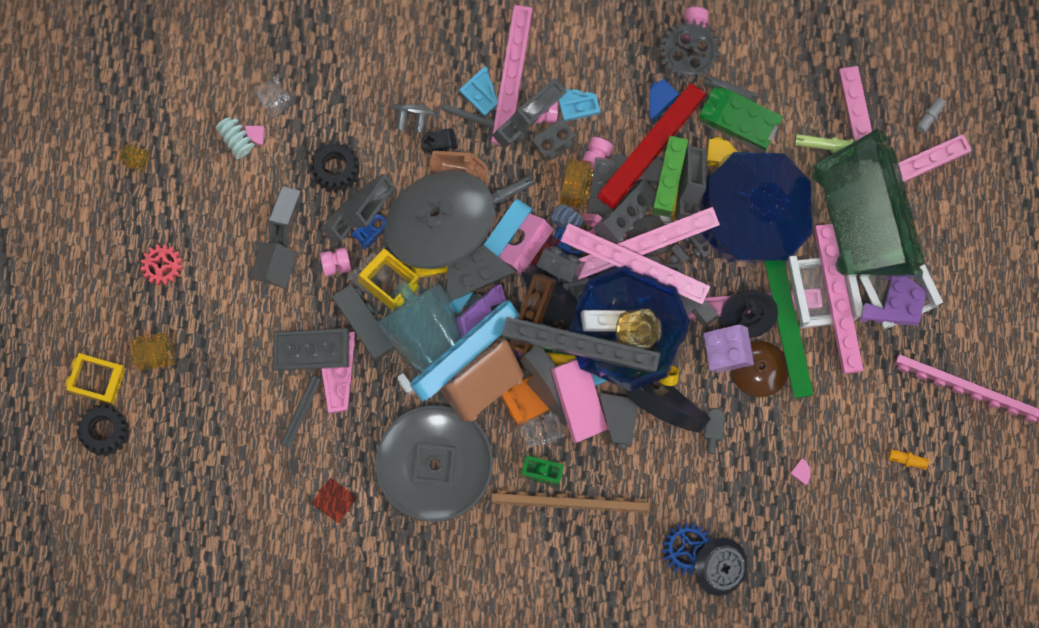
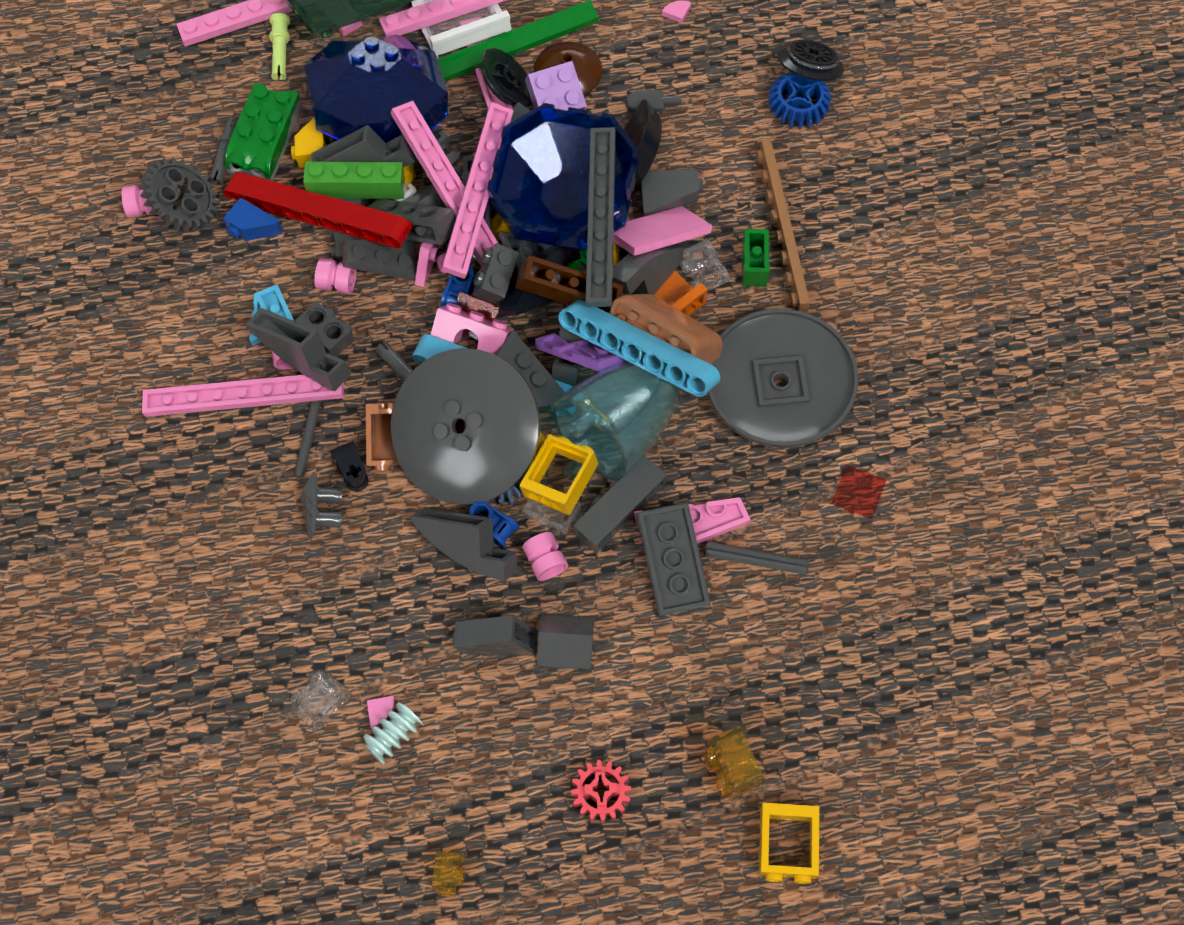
camera: 100 degrees left, 10 degrees down
(109, 445) = (875, 792): black tyre -> none
(339, 181) = (416, 606): black tyre -> none
(403, 381) = (688, 435): white tile -> none
(480, 92) = (272, 430): medium azure wing -> none
(563, 215) = (429, 290): sand blue gear -> none
(575, 183) = (381, 288): clear yellow brick -> none
(599, 320) = (556, 206): white tile -> none
(638, 328) = (561, 169): clear yellow brick -> none

